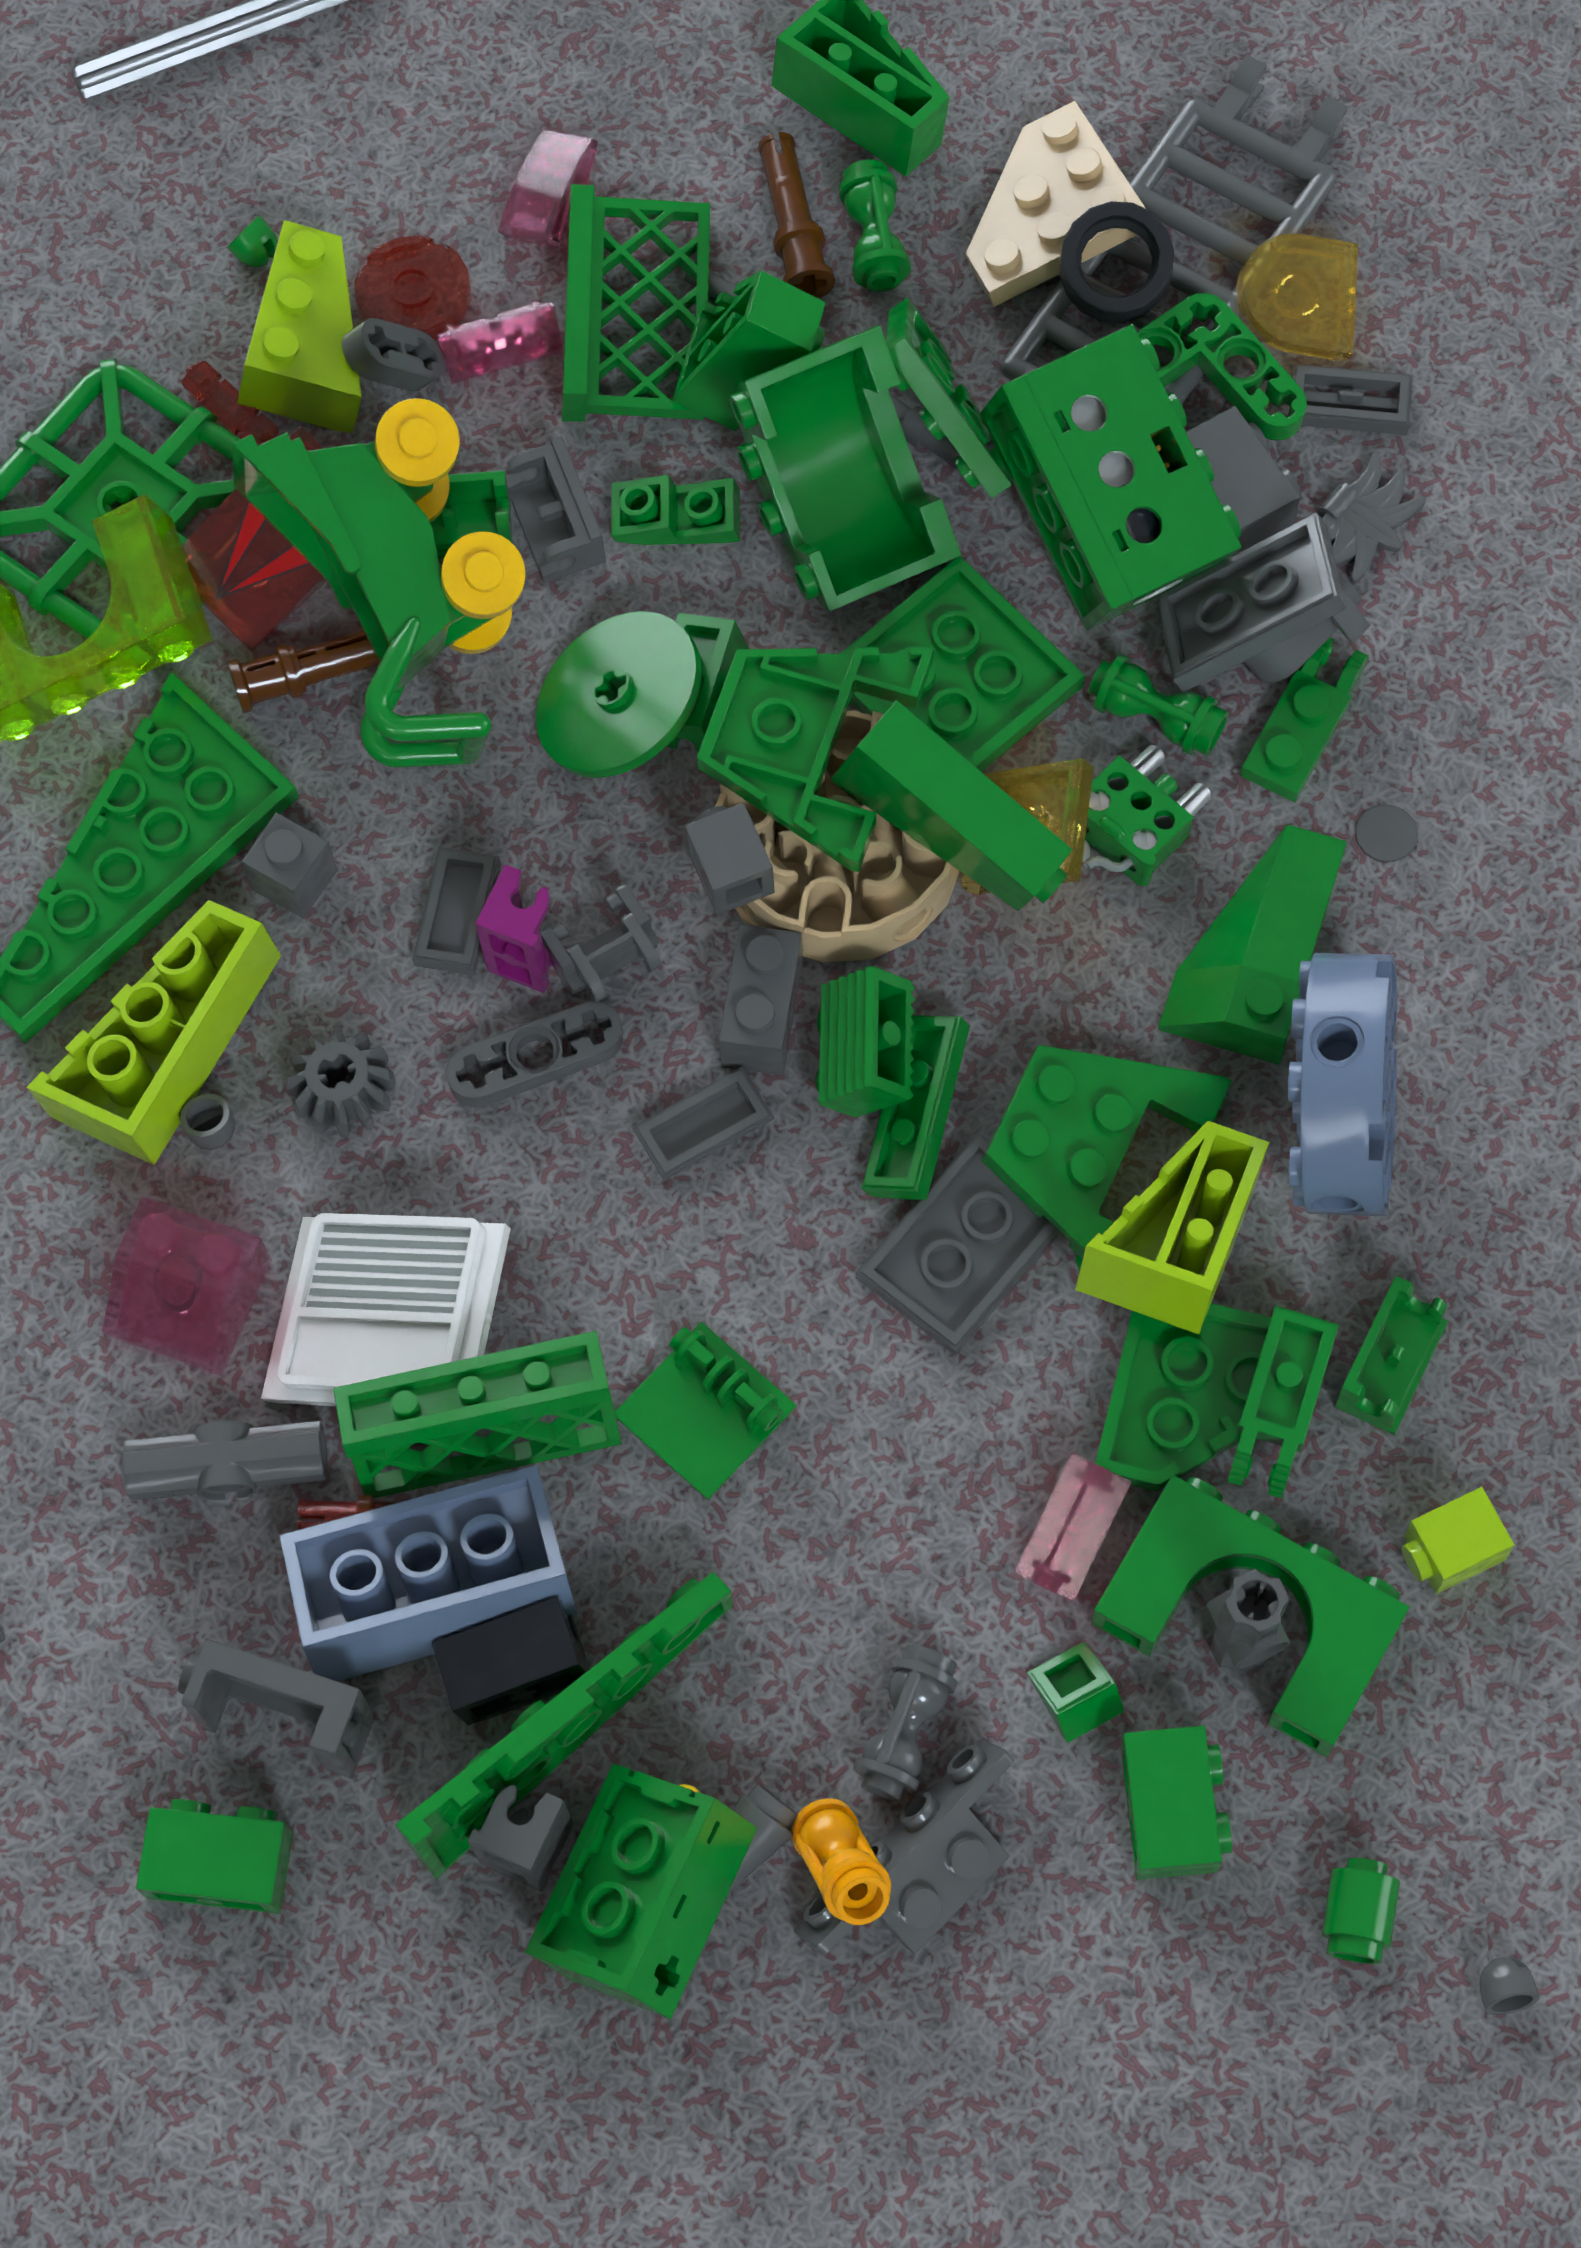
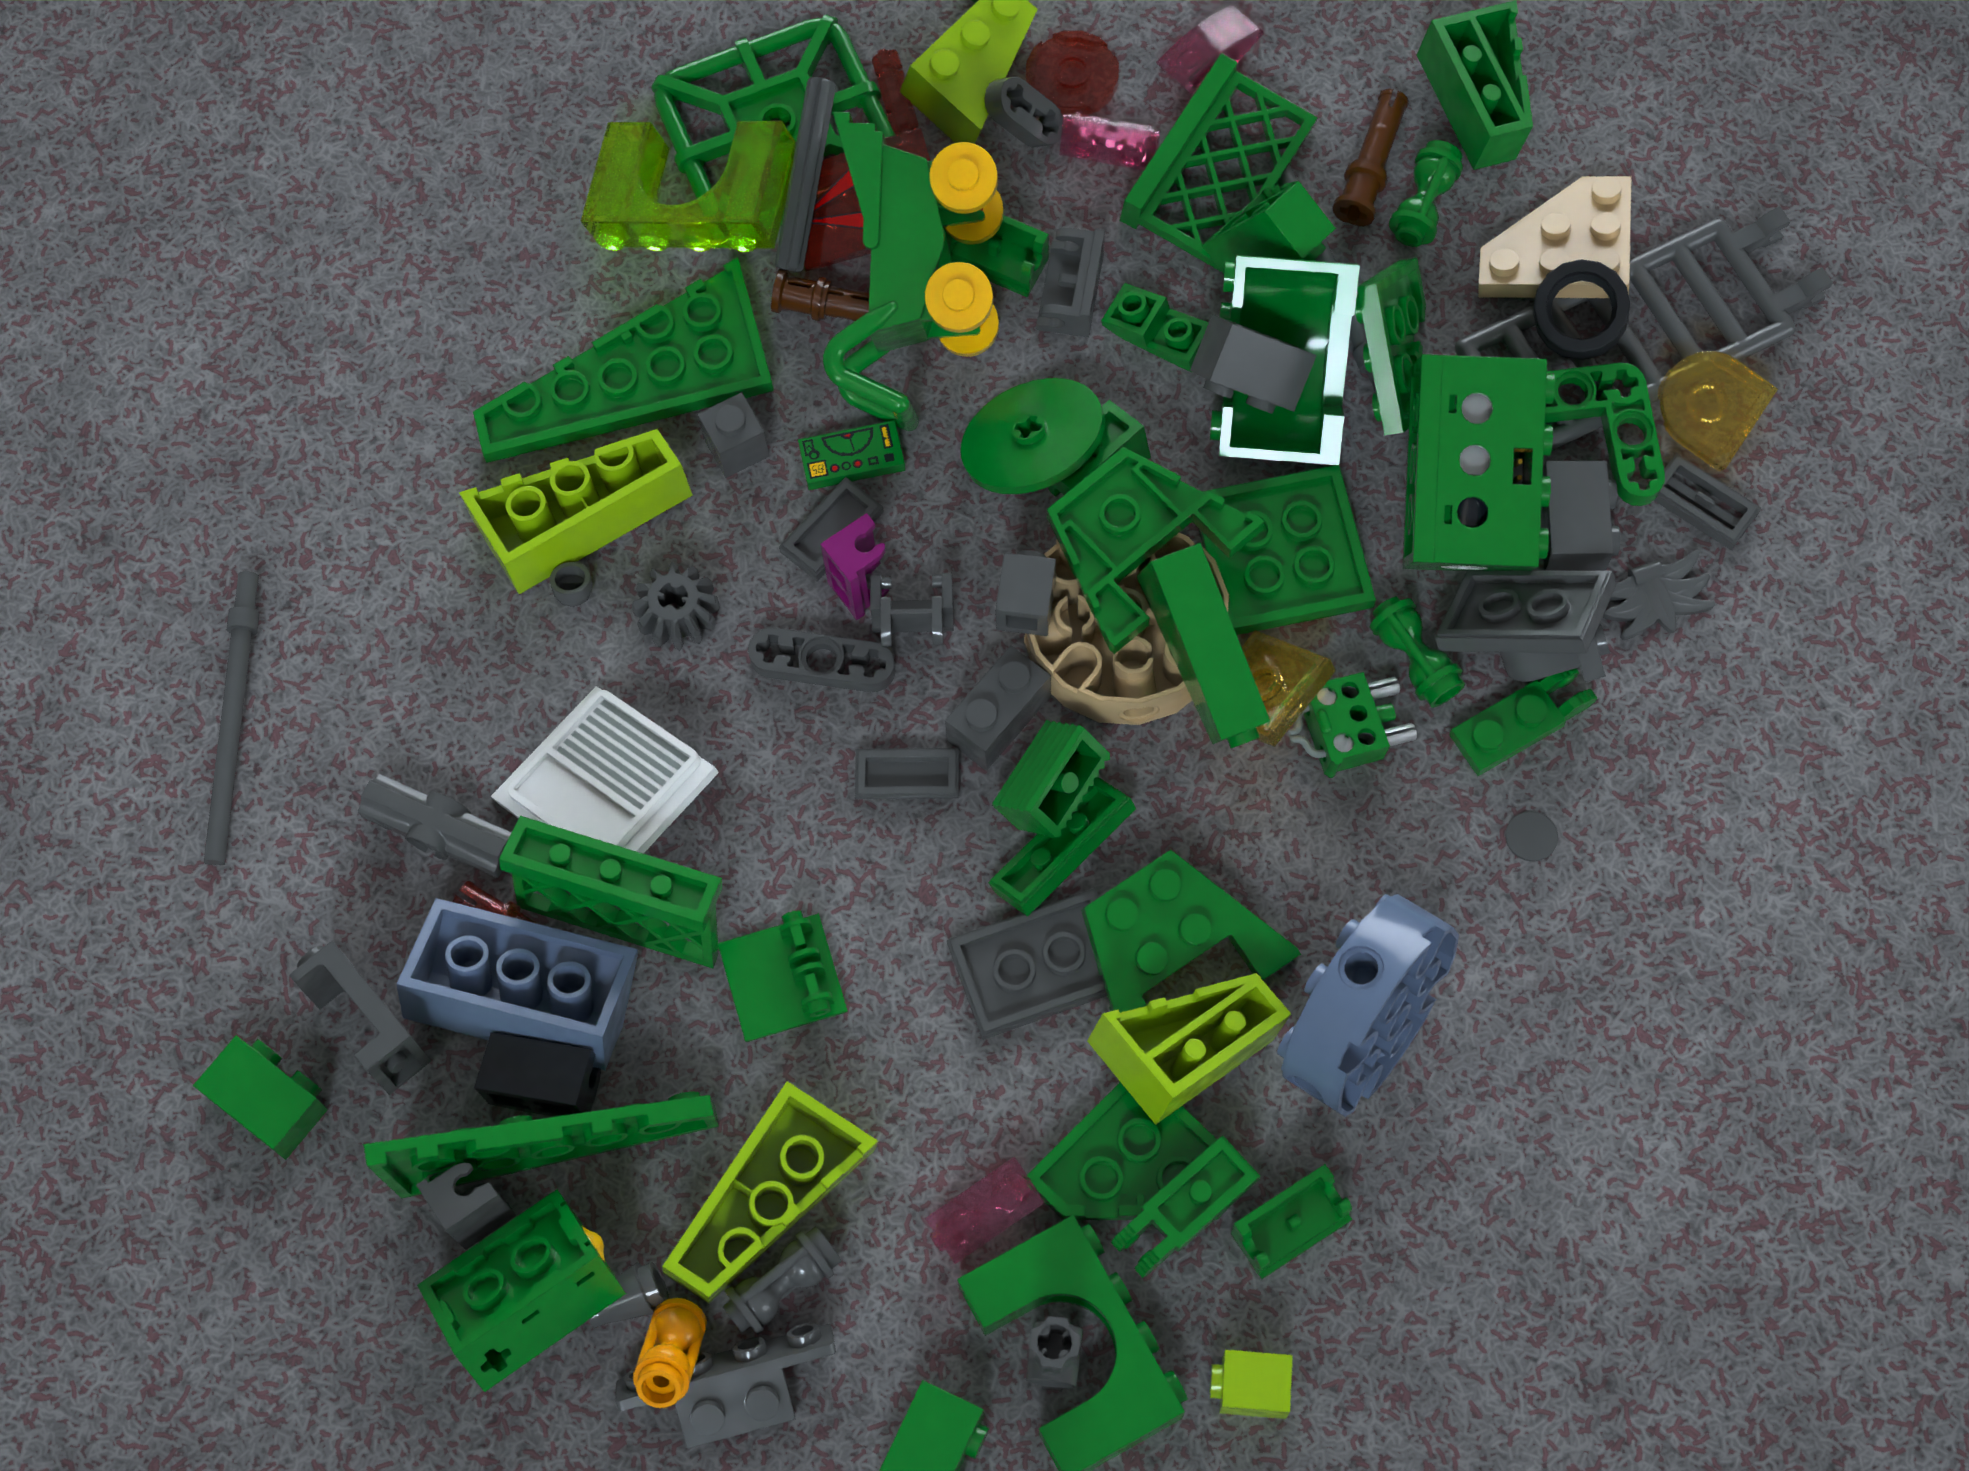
camera: 30 degrees right, 0 degrees up
(183, 1285) = (484, 689): clear pink slope -> none
(200, 541) = (805, 174): none -> dark grey axle
(428, 819) = (851, 454): none -> green tile
(812, 494) = (1252, 364): none -> dark grey brick
(834, 1636) = (767, 1190): none -> lime wedge
(1077, 1691) = (916, 1329): green slope -> none
(1246, 966) = (1388, 858): green wedge -> none

